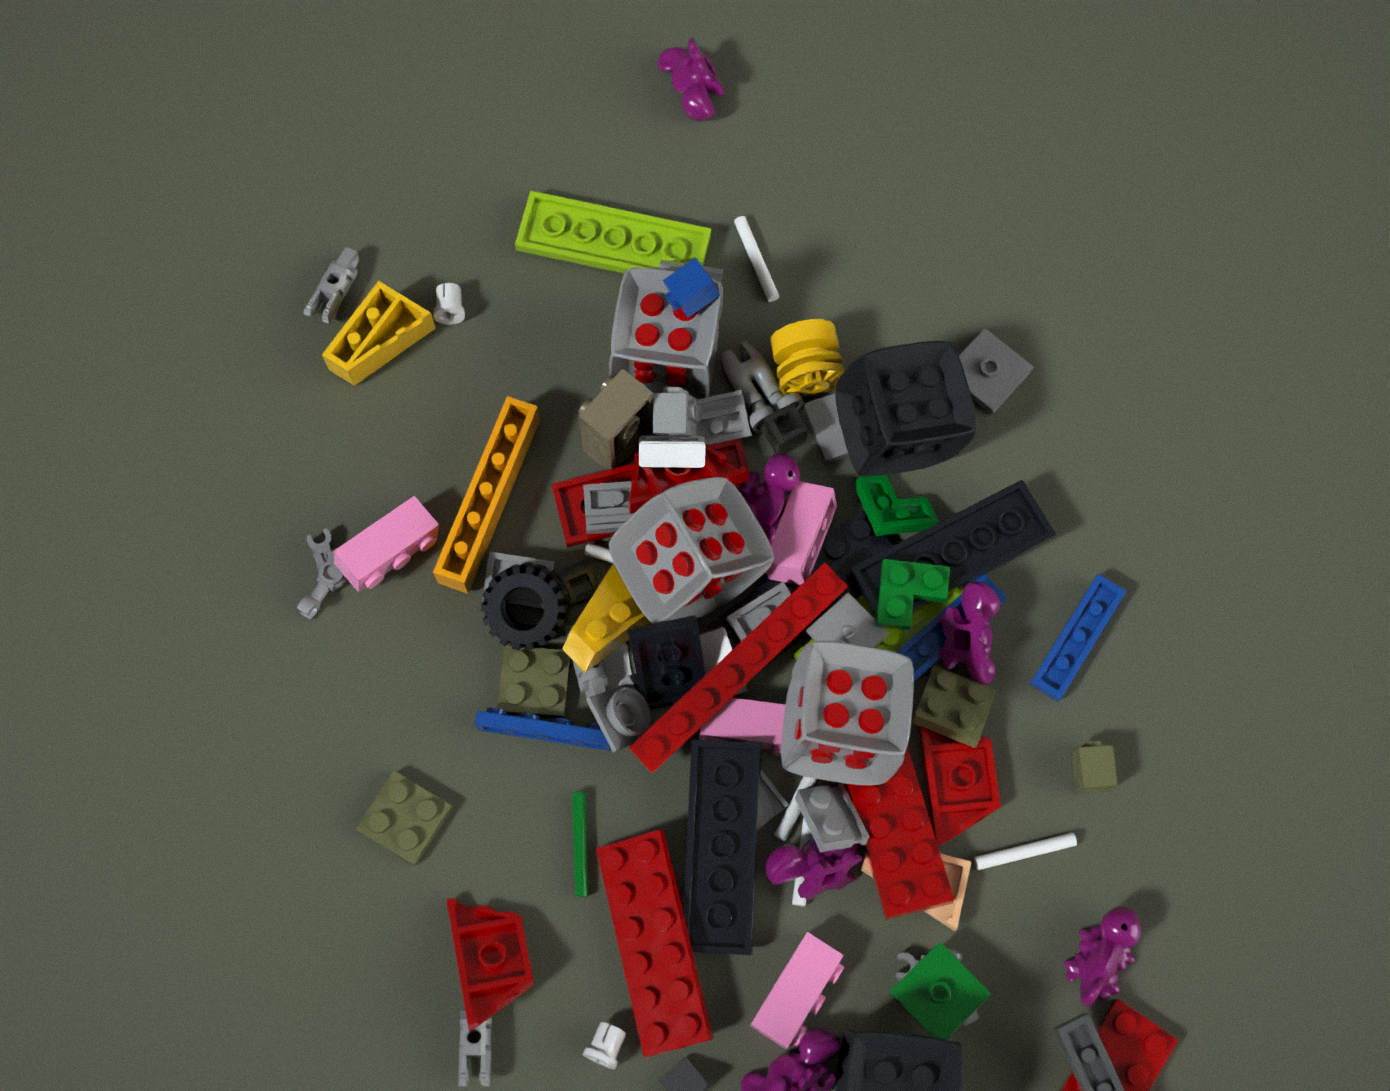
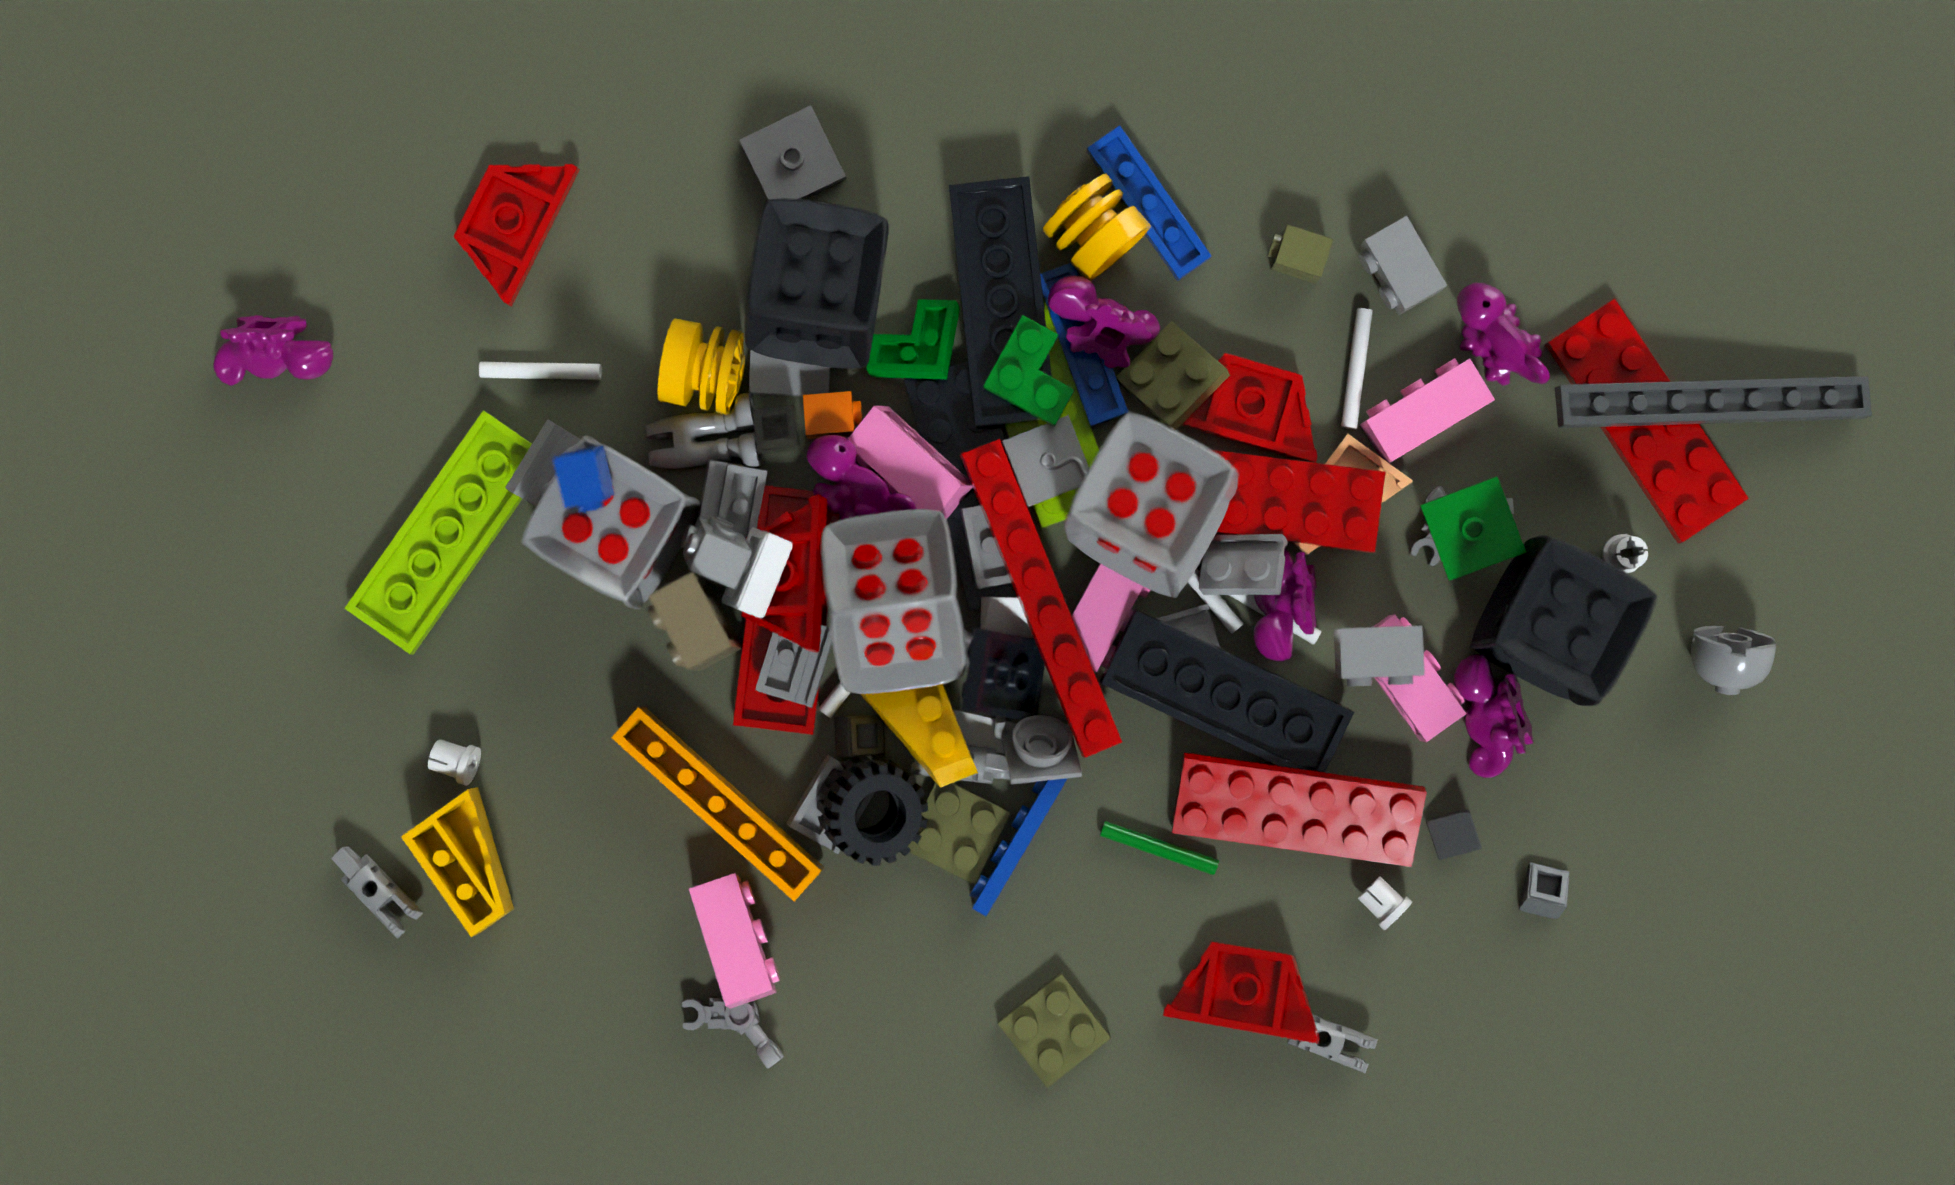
camera: 65 degrees left, 15 degrees up
(806, 948) = (1379, 653): none -> light grey brick
(814, 463) = (831, 414): none -> orange brick
(855, 199) = (511, 221): none -> red wing
(1018, 919) = (1426, 409): none -> bright pink brick
(1041, 600) = (1096, 227): none -> yellow wheel
(1122, 850) = (1401, 266): none -> light grey brick

